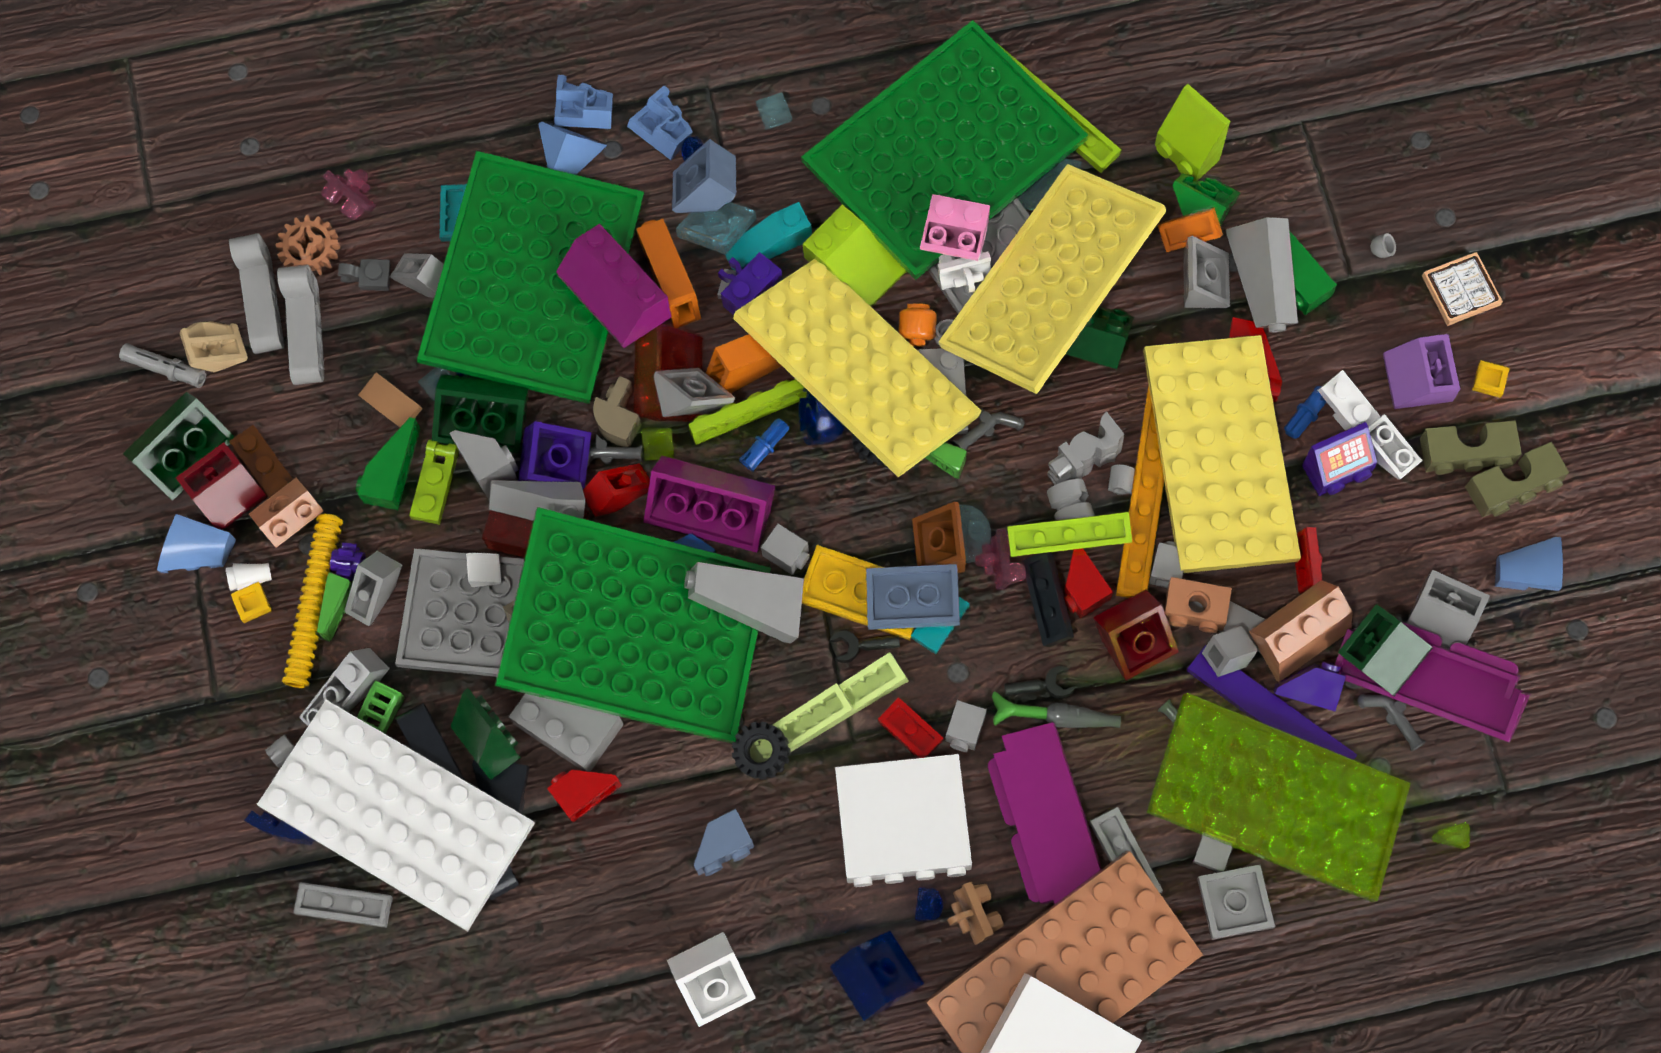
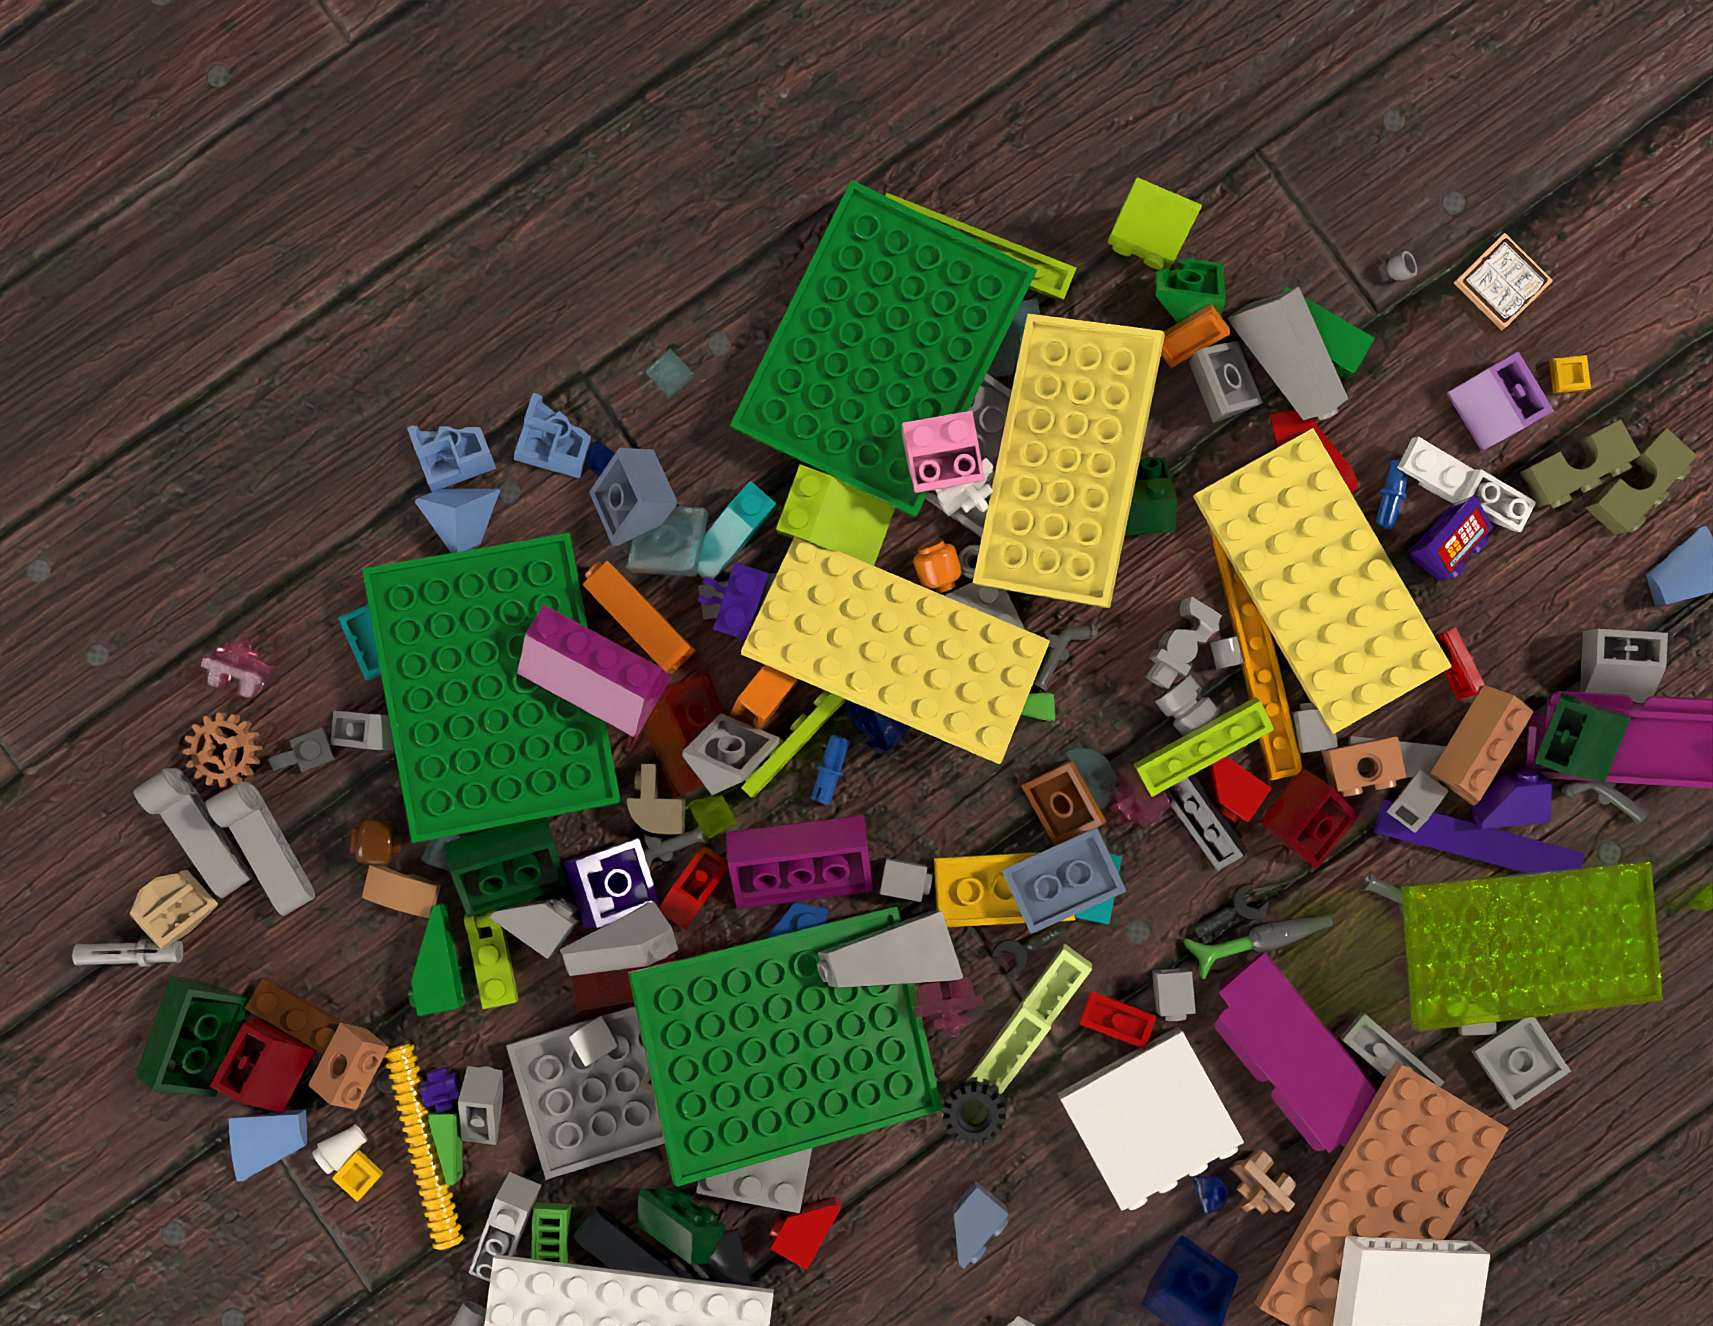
camera: 30 degrees left, 15 degrees up
(388, 356) = (374, 841): none -> reddish brown head
(777, 661) = (961, 999): none -> clear pink hips

